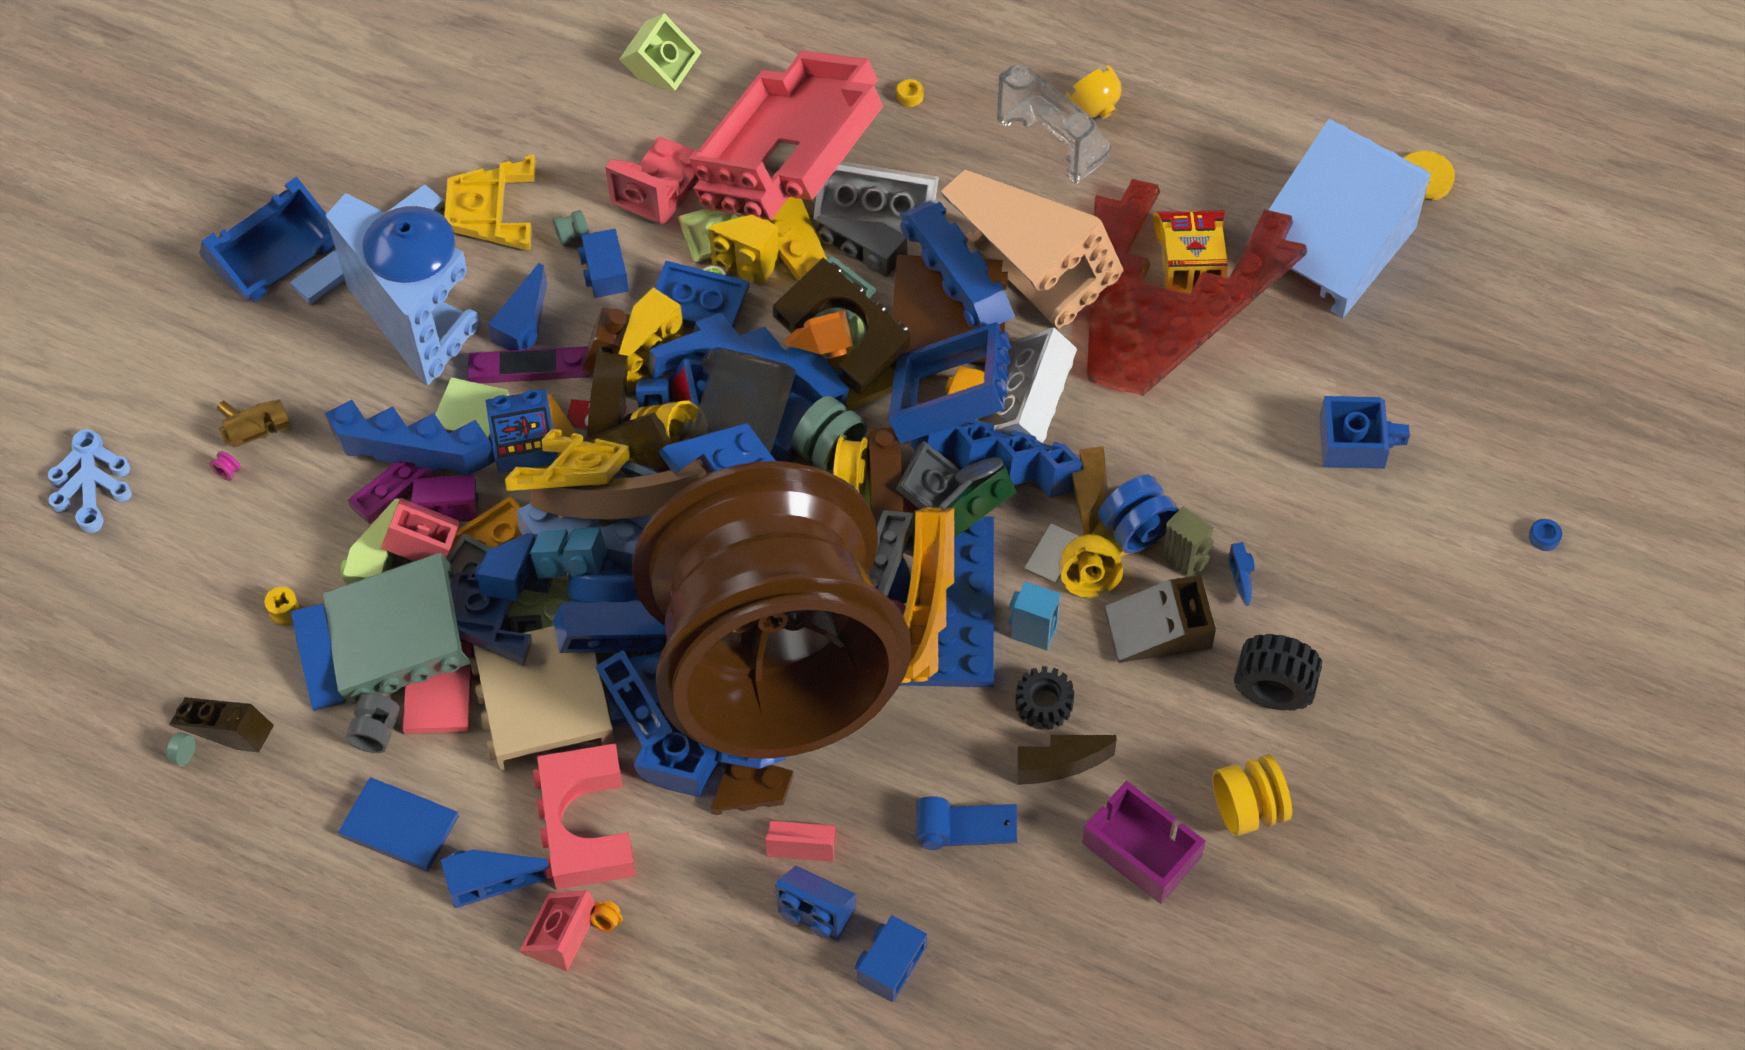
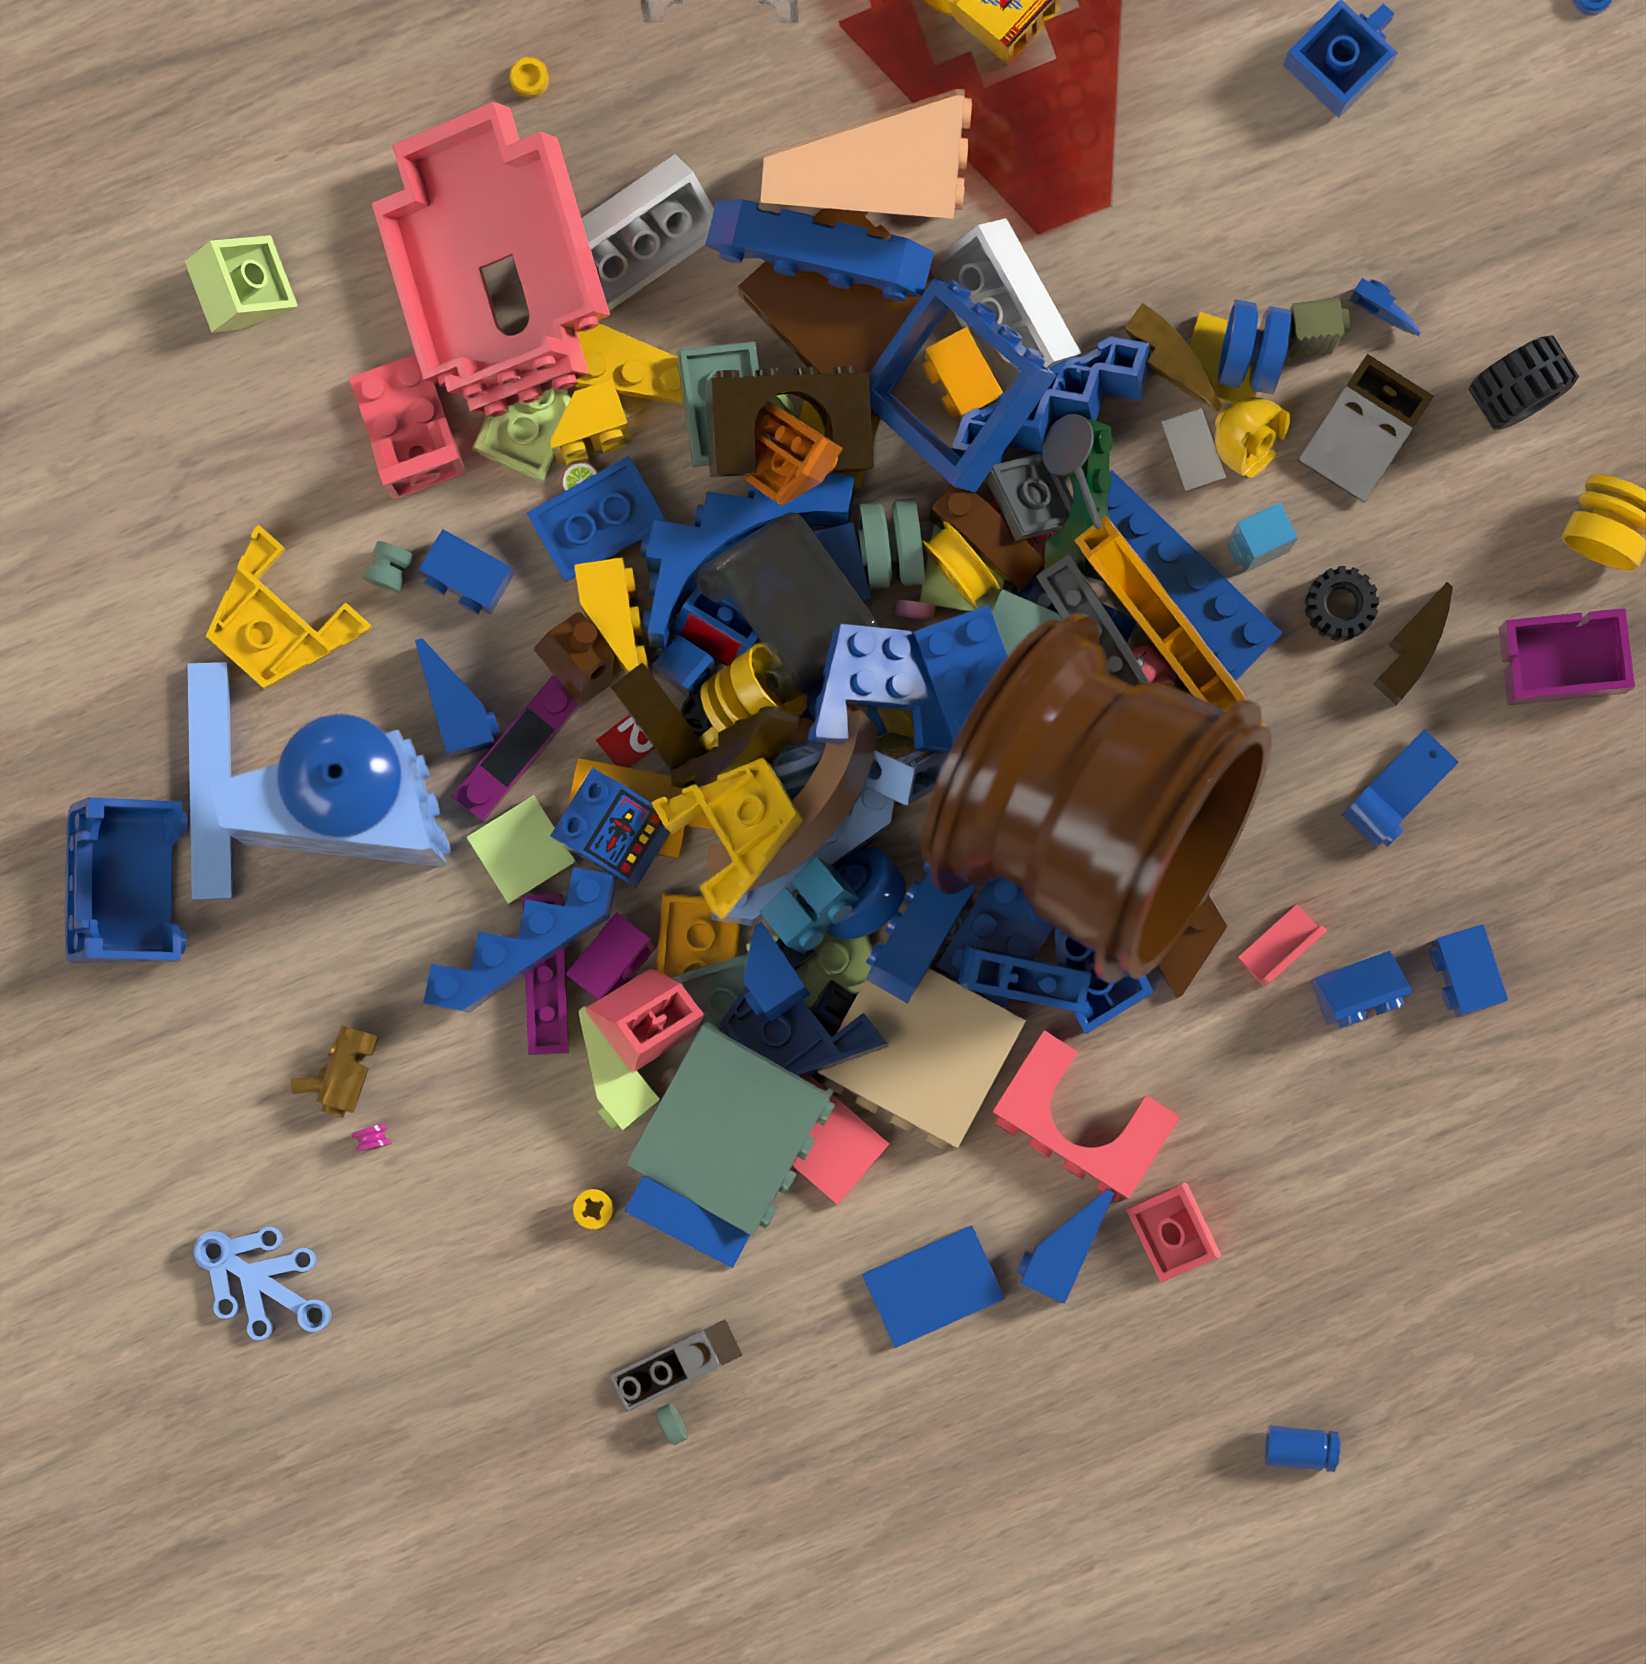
camera: 45 degrees left, 25 degrees up
(372, 724) = (810, 1228): dark grey wheel -> none
(606, 916) = (1200, 1179): light orange plate -> none
(866, 241) = (690, 293): dark grey slope -> none

